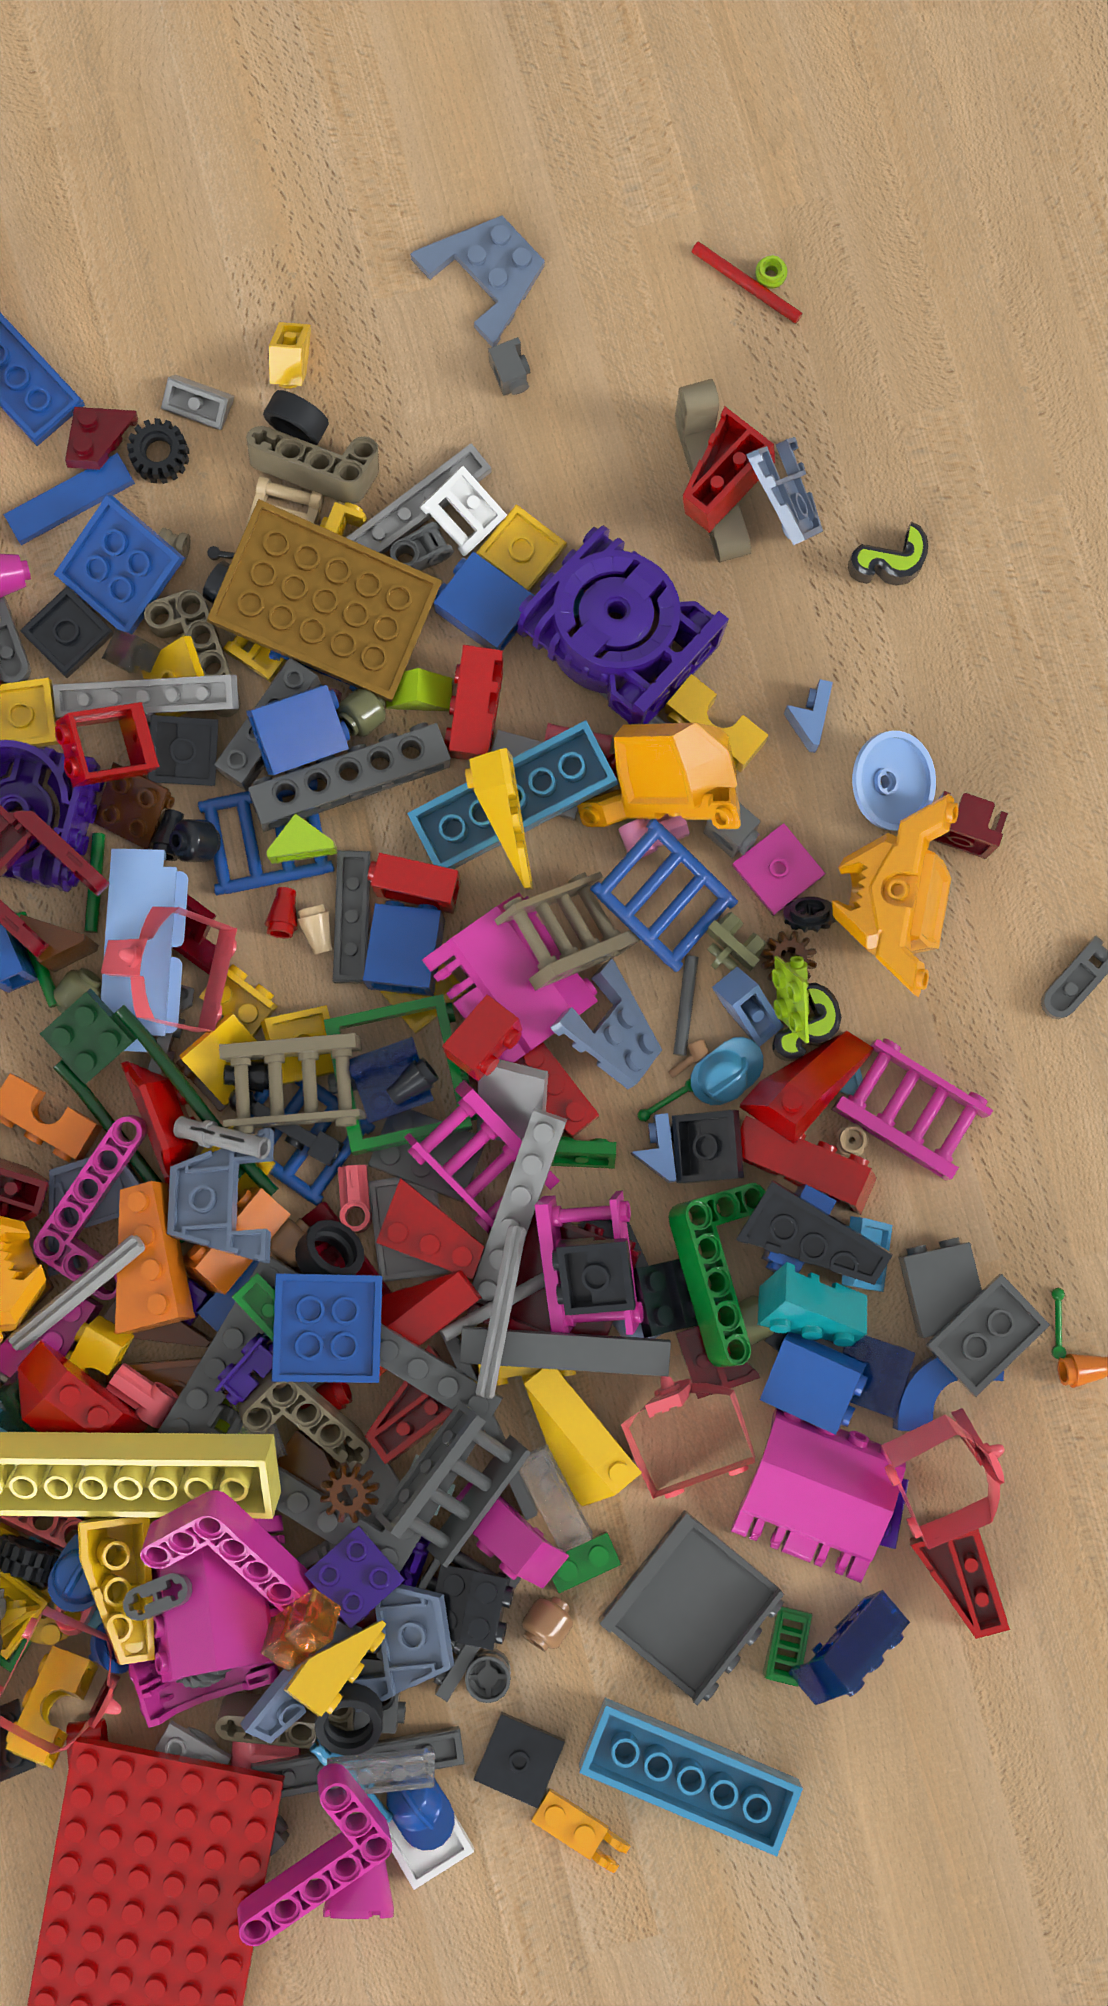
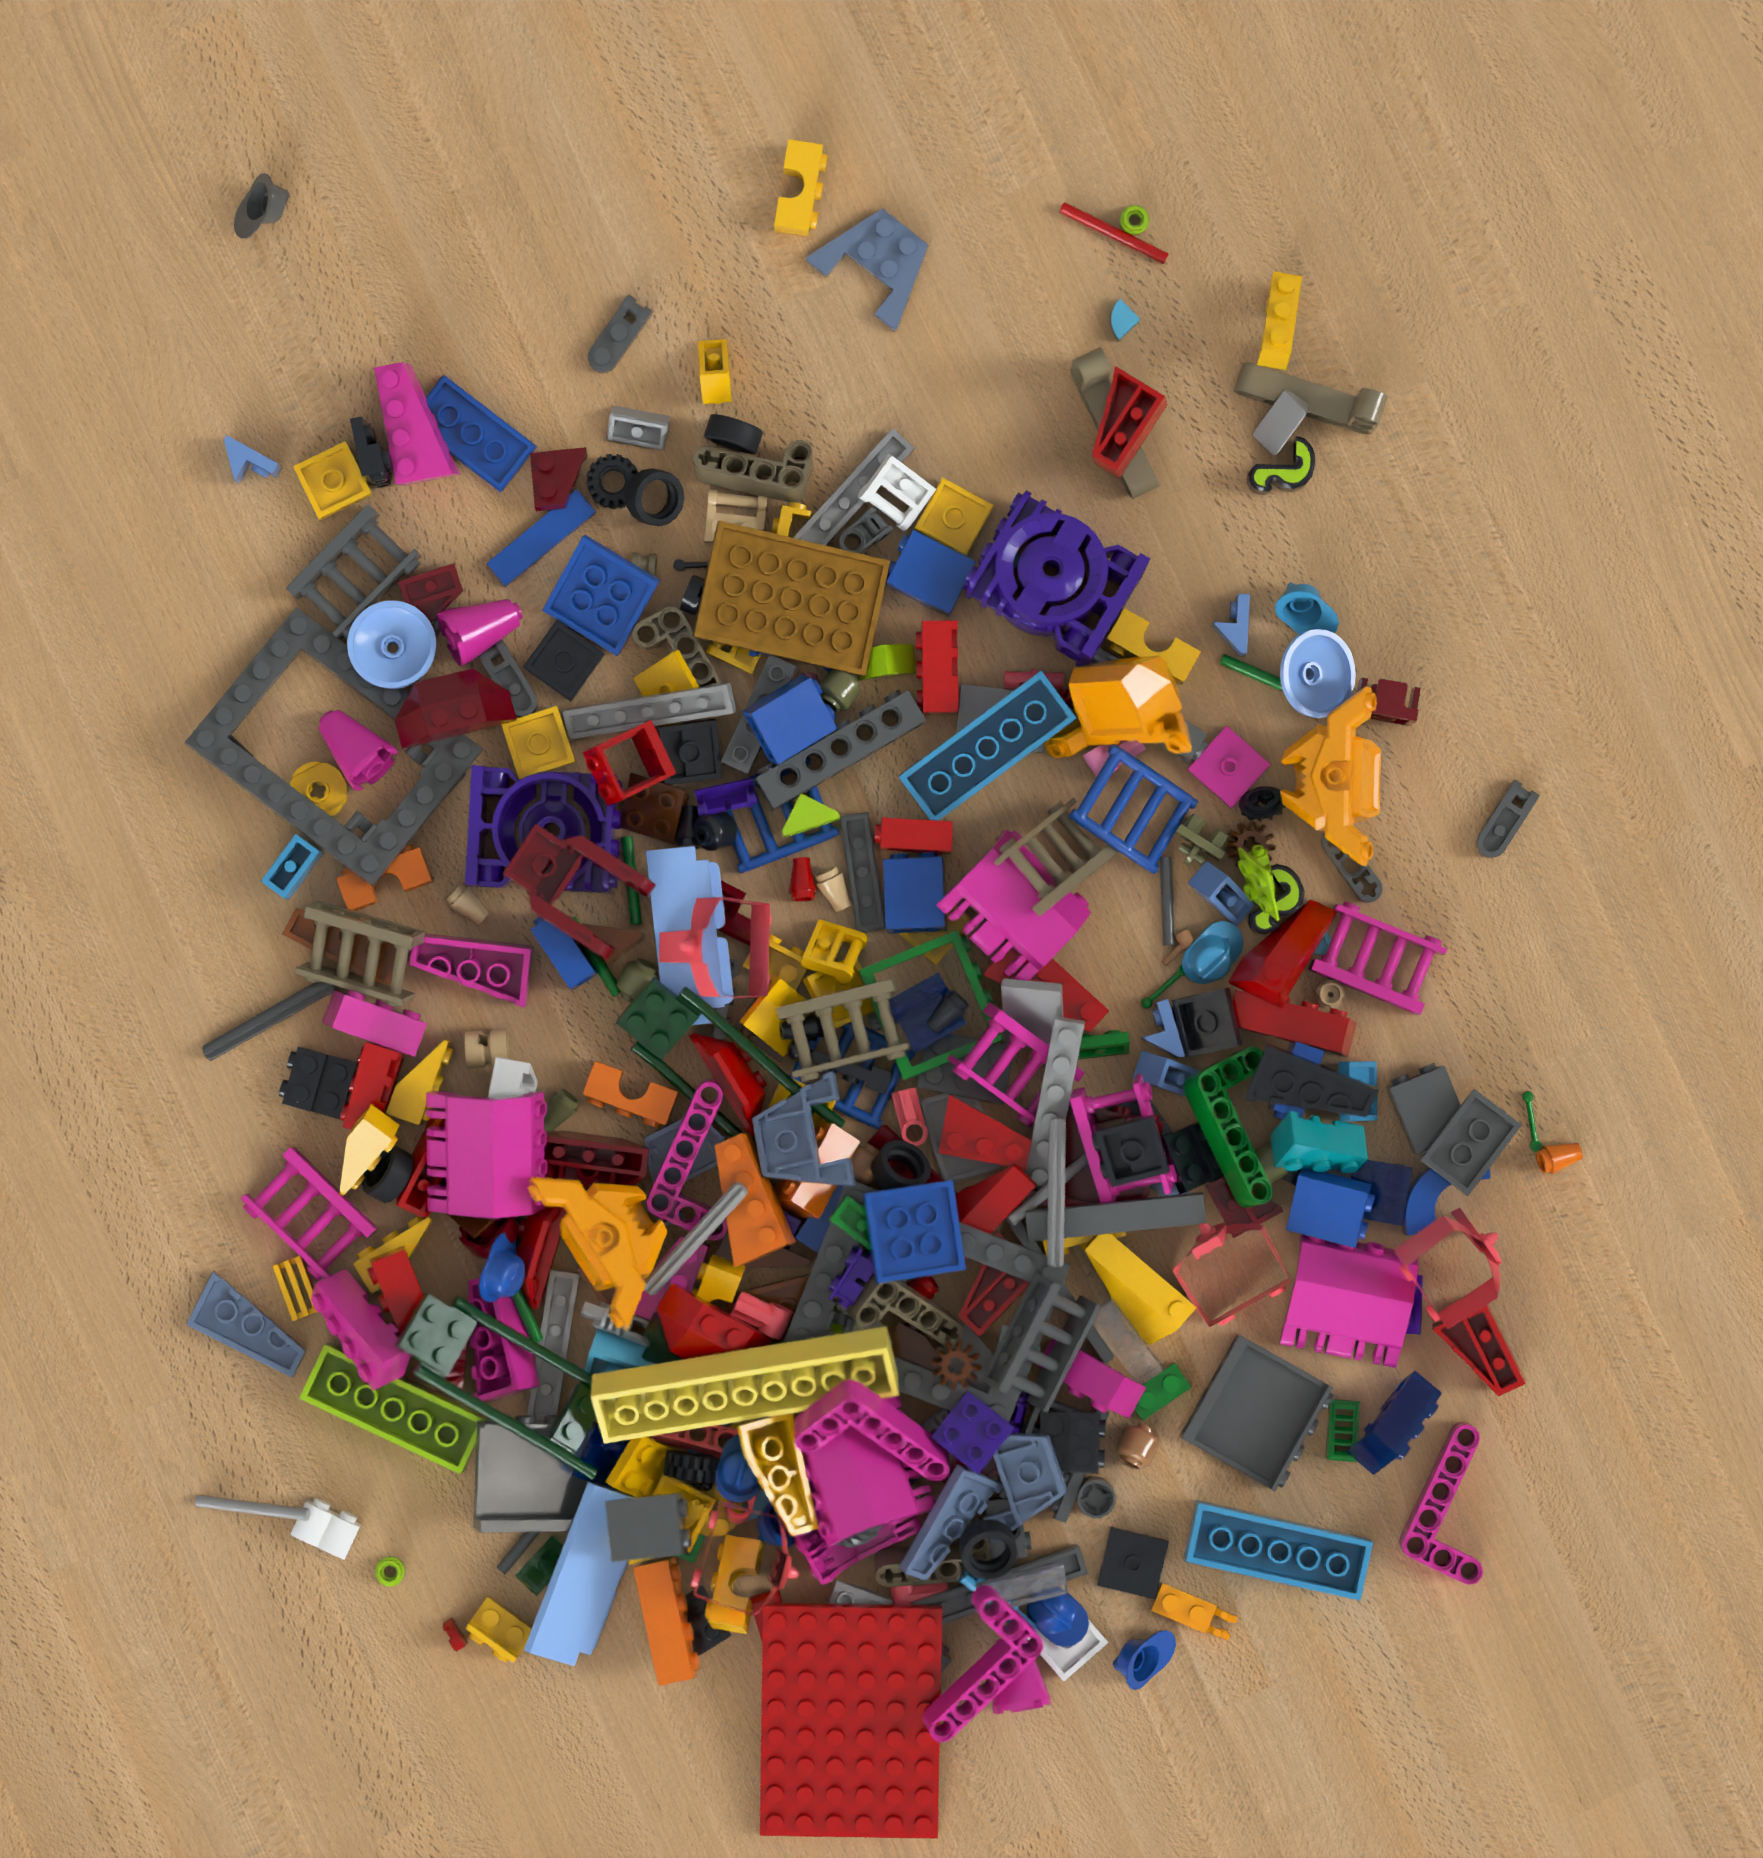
camera: 15 degrees left, 5 degrees up
(130, 652) = (626, 671): clear smoke brick -> none
(154, 1589) = (810, 1469): dark grey beam -> none
(194, 301) = (618, 336): none -> dark grey plate
(210, 1134) = (782, 1085): light grey pin -> none
(214, 805) = (726, 796): none -> dark purple hinge
(221, 462) = (674, 500): none -> black tyre
(294, 988) = (825, 945): none -> yellow plate
(301, 1629) = (937, 1481): clear orange piece -> none
(325, 1673) = (963, 1514): yellow slope -> none
(409, 204) = (797, 213): none -> yellow arch
(483, 1038) = (1002, 965): red brick -> none
(496, 789) = (976, 750): yellow wedge -> none
(509, 367) = (914, 351): dark grey brick -> none
(512, 1878) = (1145, 1658): none -> blue piece
(622, 1037) = (1119, 940): sand blue wing -> none
(649, 1195) = (1163, 1072): none -> medium blue slope
(741, 373) = (1122, 319): none -> medium azure tile
(787, 495) = (1185, 435): sand blue wing -> none
(821, 770) = (1251, 671): none -> green bar
(887, 1755) = (1439, 1506): none -> dark pink beam
(890, 708) = (1305, 610): none -> dark azure piece
(896, 503) = (1280, 421): none -> light grey slope
(899, 1027) = (1358, 887): none -> dark grey beam
(912, 396) = (1280, 320): none -> yellow arch
(935, 489) = (1326, 404): none -> dark tan beam

